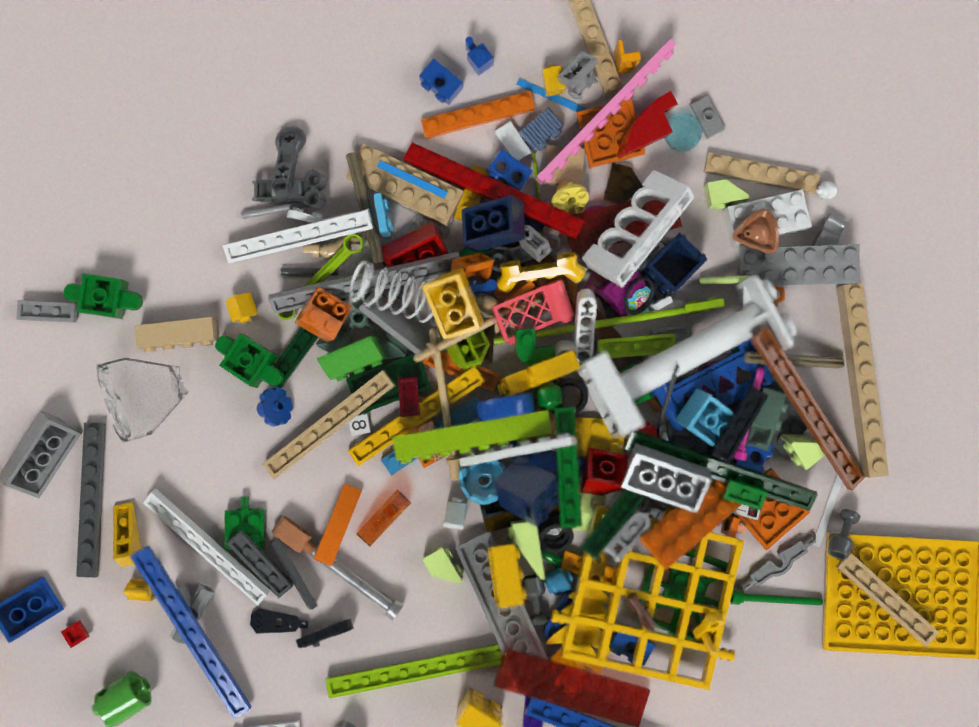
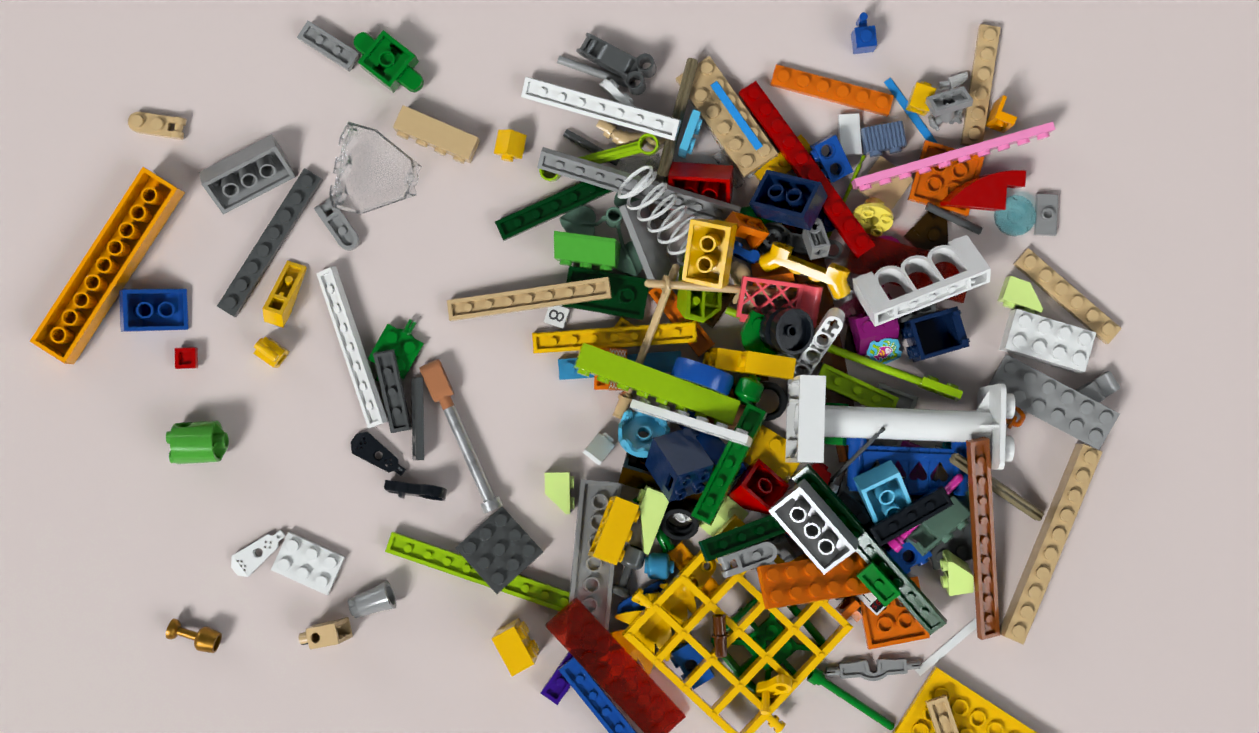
camera: 30 degrees right, 0 degrees up
(139, 454) = (338, 226): none -> light grey plate
(191, 631) = (295, 416): blue plate -> none
(196, 602) = (303, 387): light grey piece -> none
(249, 361) = (489, 198): green brick -> none
(274, 406) = (488, 253): blue plant -> none
(288, 144) = (639, 18): dark grey beam -> none
(323, 314) = (582, 194): orange slope -> none
(337, 525) = (484, 396): orange slope -> none
(383, 518) = (530, 414): clear orange slope -> none
(408, 396) = (618, 315): dark red plate -> none
(421, 643) = (499, 550): none -> dark grey plate
(436, 72) = (814, 28): blue brick -> none
(552, 331) = (786, 330): none -> black wheel
(572, 52) = (954, 81): none -> white bar
(630, 288) = (904, 337): black tyre -> none
(635, 162) = (953, 218): none -> dark grey bar
(660, 303) = (901, 363): white tile -> none
(723, 279) = (972, 374): yellowish green bar -> none
(759, 232) = (1032, 348): nougat hat -> none
(826, 190) = (1119, 346): white plate -> none
(840, 544) = (942, 683): dark grey piece -> none

